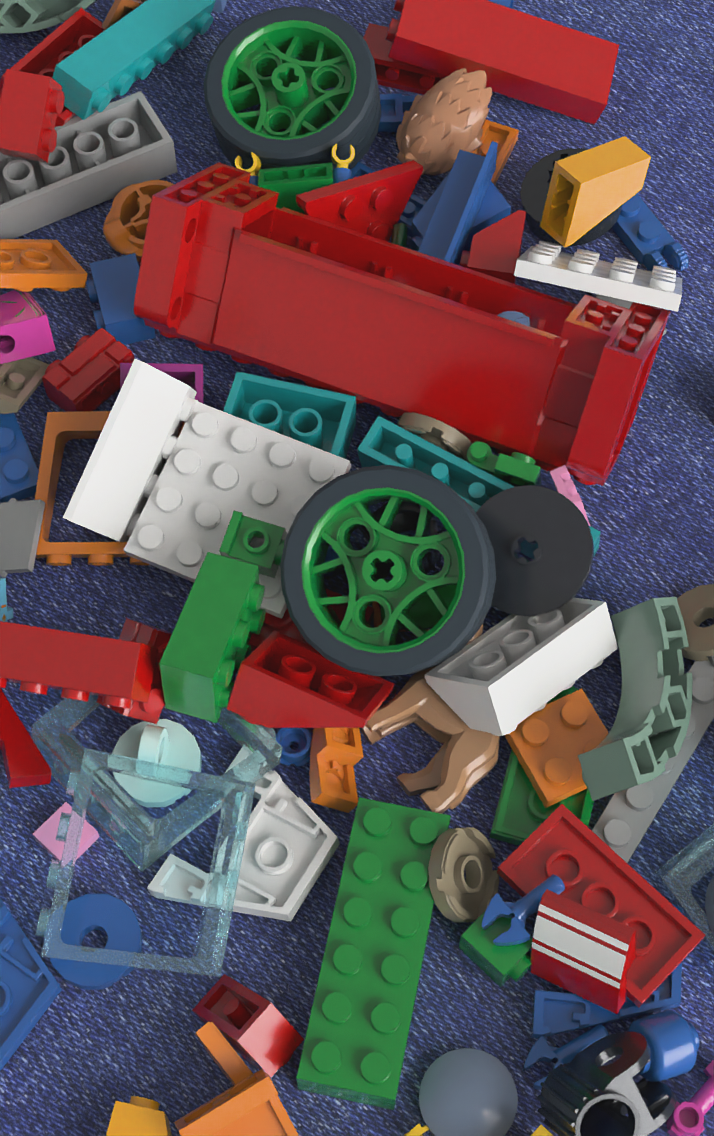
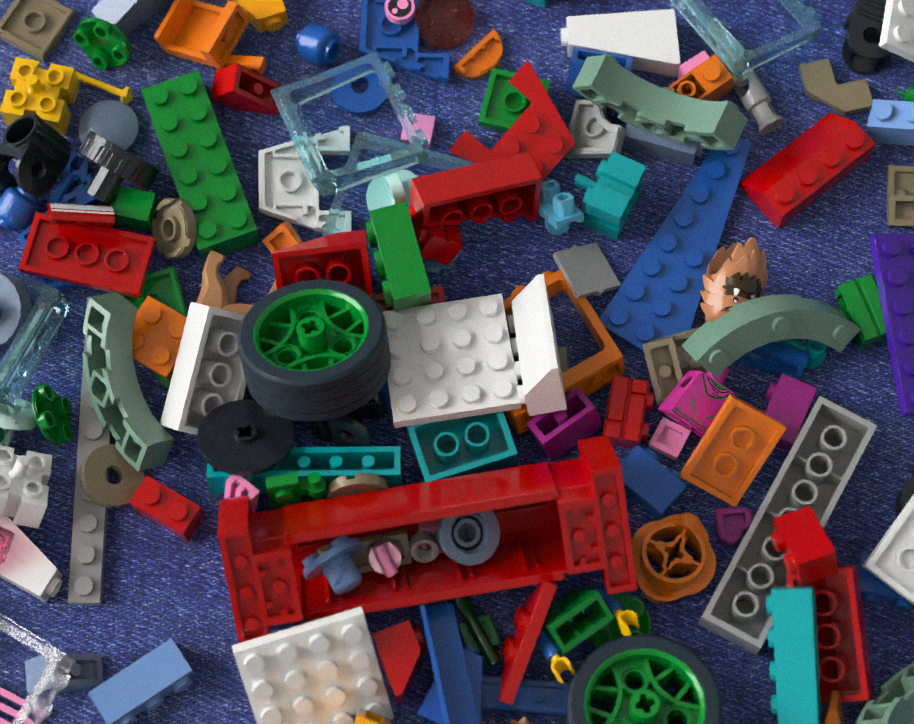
camera: 150 degrees right, 10 degrees up
(66, 333) = (669, 438): none -> bright pink tile
(73, 231) = (731, 524): none -> magenta tile
(106, 1032) = (318, 44): none -> blue head
(239, 537) = (412, 327): green brick -> none
(493, 1000) = (115, 167): none -> black piece
(520, 910) = (127, 218): blue bar -> none
(660, 551) = (167, 508): none -> red brick

